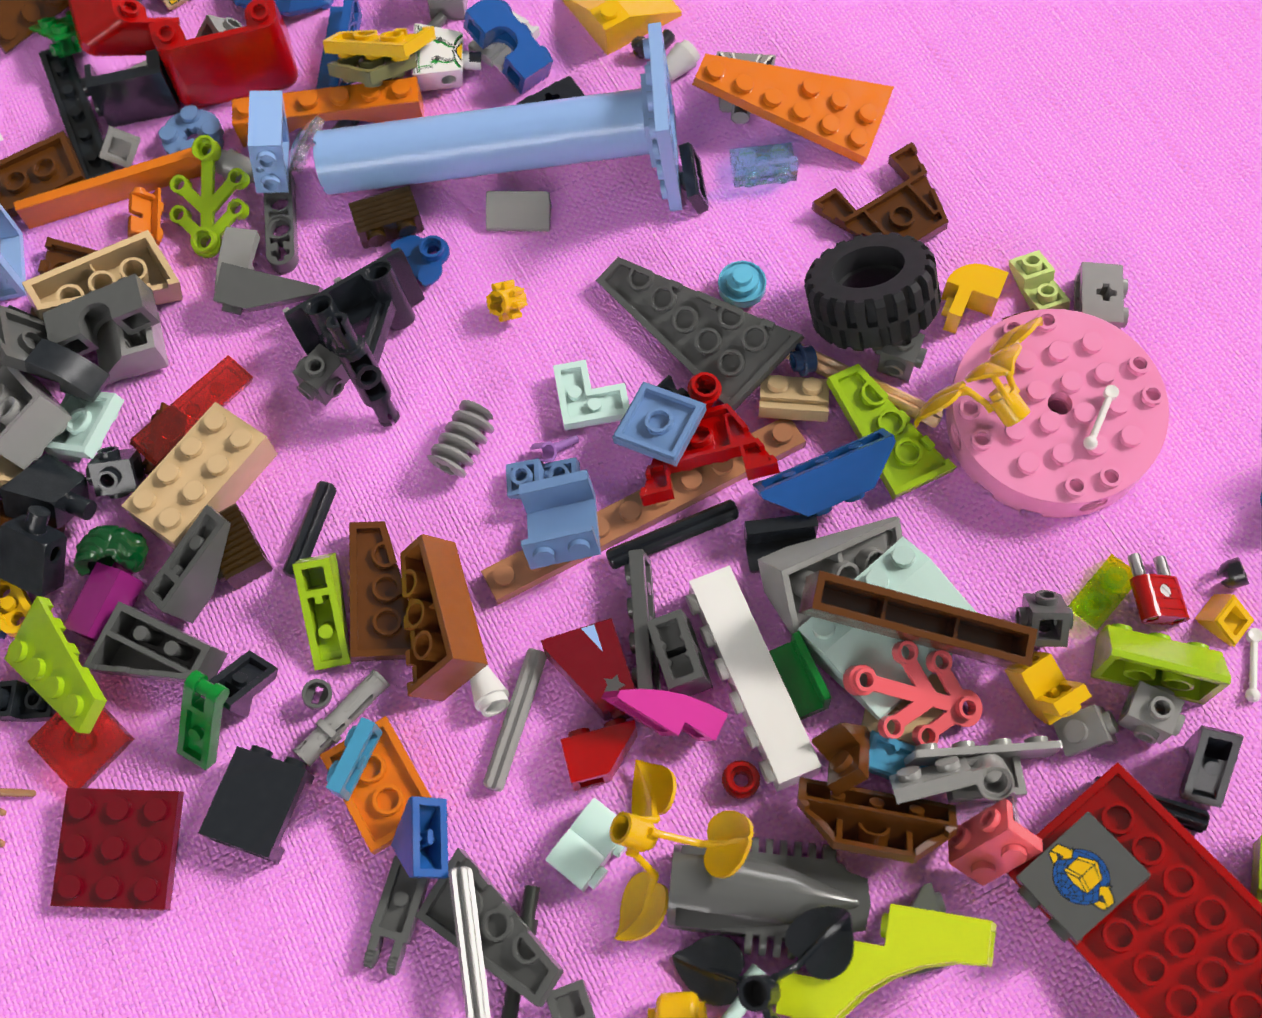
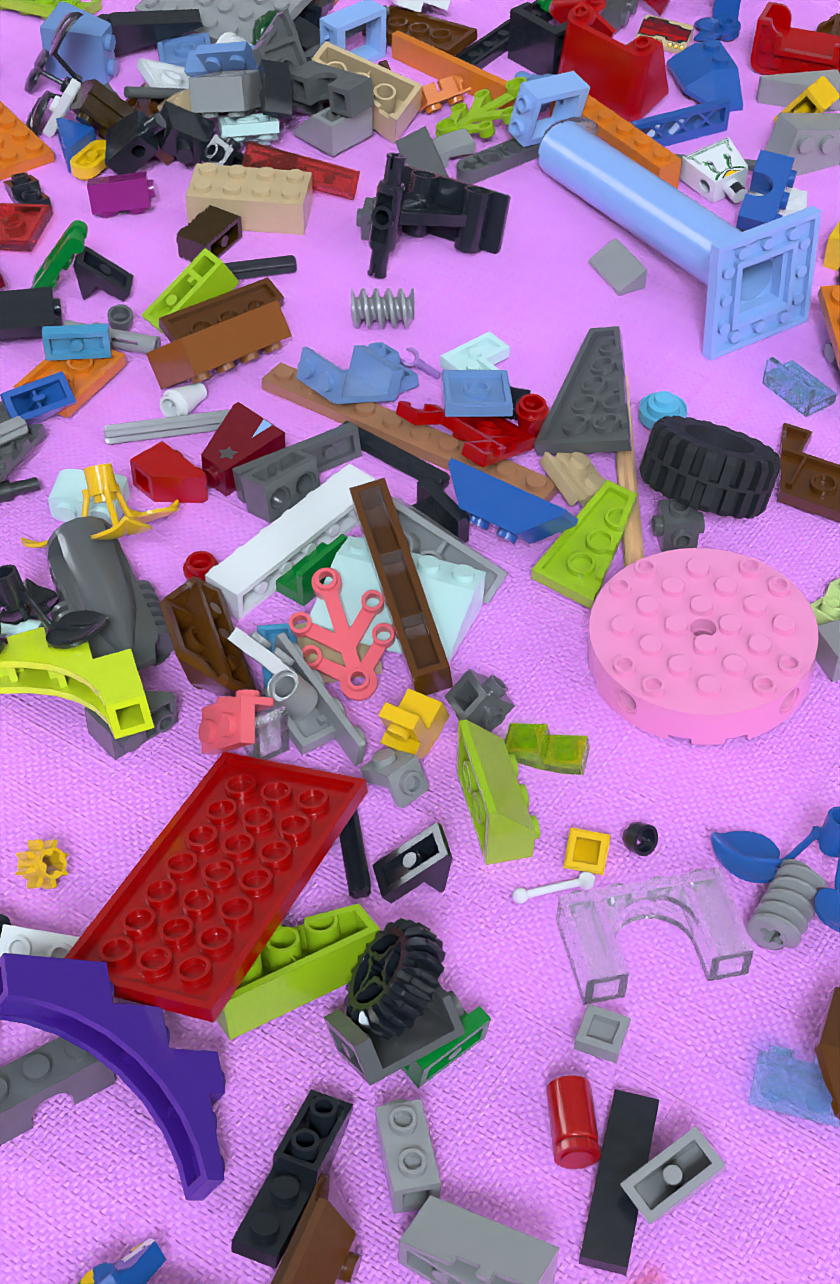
camera: 55 degrees right, 20 degrees down
(54, 669) = (55, 184): lime wing -> none
(111, 544) = (163, 172): dark green hair -> none
(119, 147) = (489, 57): light grey tile -> none
(150, 649) = (106, 218): dark grey wedge -> none
(192, 569) = (160, 216): dark grey slope -> none
(369, 71) = (658, 126): olive plate -> none
(386, 217) = (548, 202): dark brown brick -> none
(392, 44) = (687, 123): yellow wing -> none
(418, 251) = (532, 236): blue plate -> none
(506, 300) = (526, 286): yellow gear -> none
(669, 712) = (224, 489): dark pink slope -> none
(692, 178) = (740, 346): black plate -> none
(803, 359) = (613, 462): dark blue plate -> none
(847, 751) = (261, 602): reddish brown slope -> none
(971, 288) = (785, 550): yellow brick -> none
(1004, 398) = (661, 566): yellow plant -> none
(1080, 879) = (237, 773): dark grey panel -> none
(1110, 394) = (737, 650): white hinge -> none
(1152, 713) = (440, 802): light grey brick -> none
(1157, 595) = (567, 782): red piece -> none

